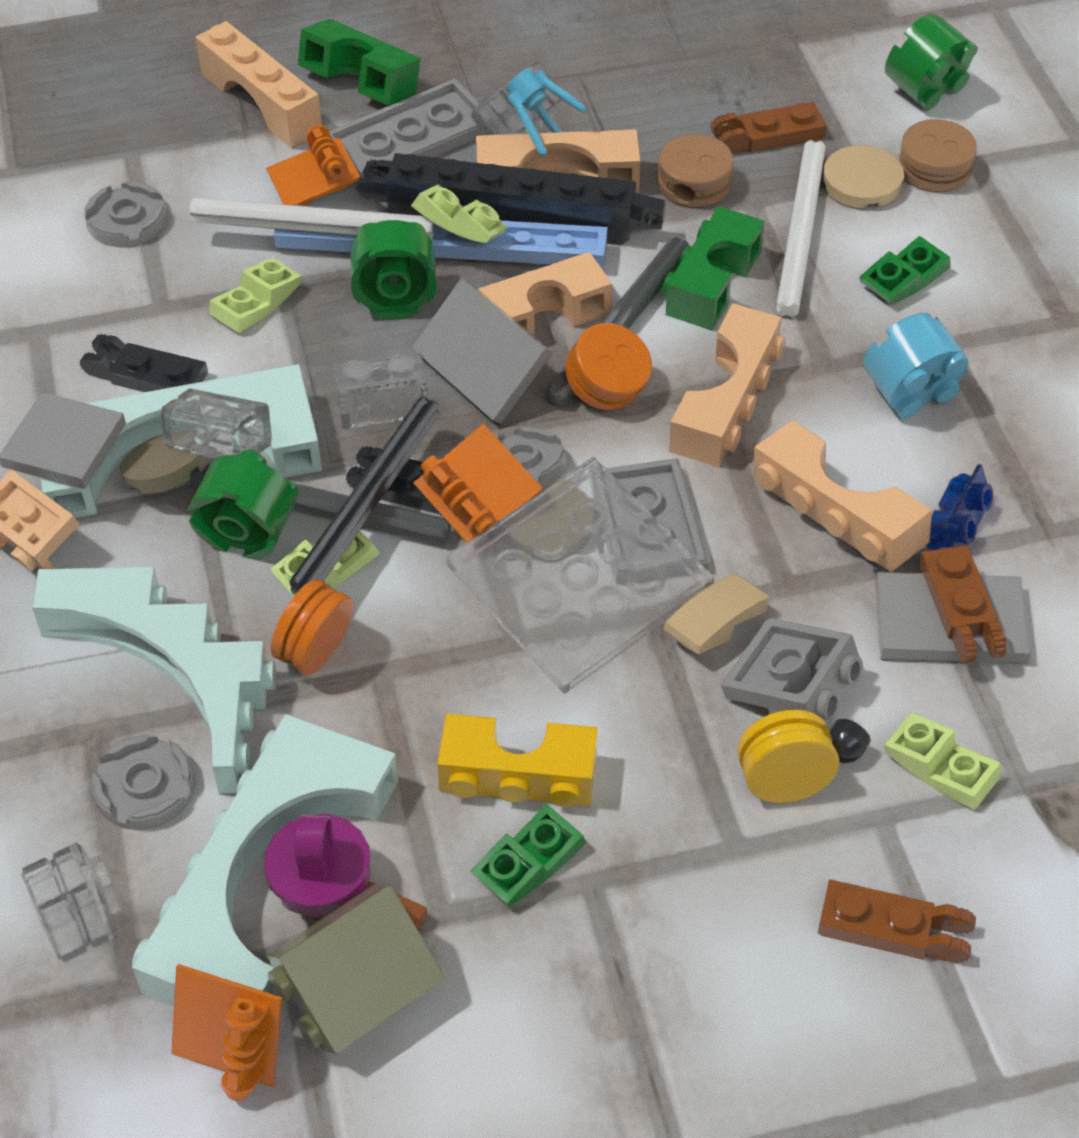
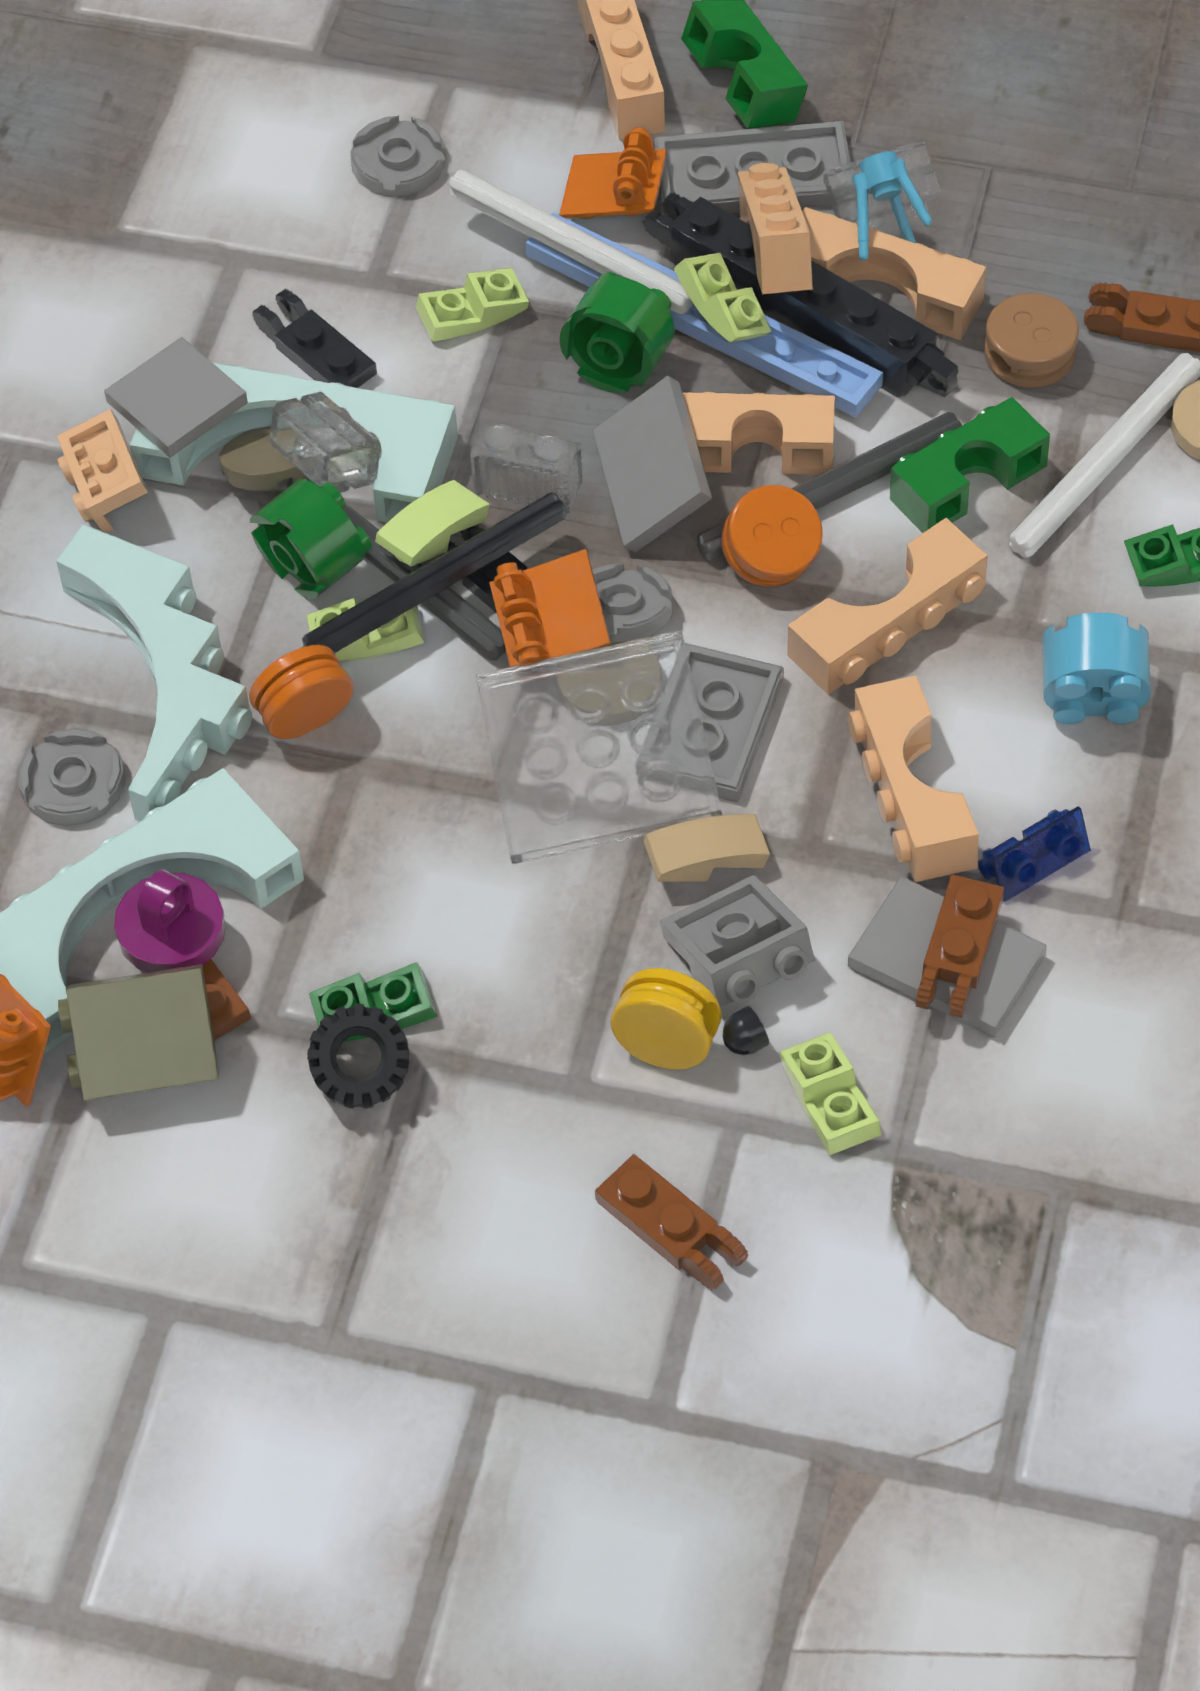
camera: 30 degrees right, 5 degrees up
(335, 457) = (426, 524): none -> yellowish green slope
(489, 151) = (777, 229): none -> light nougat arch
(555, 772) = (449, 935): yellow arch -> none
(586, 898) = (348, 1023): none -> black tyre

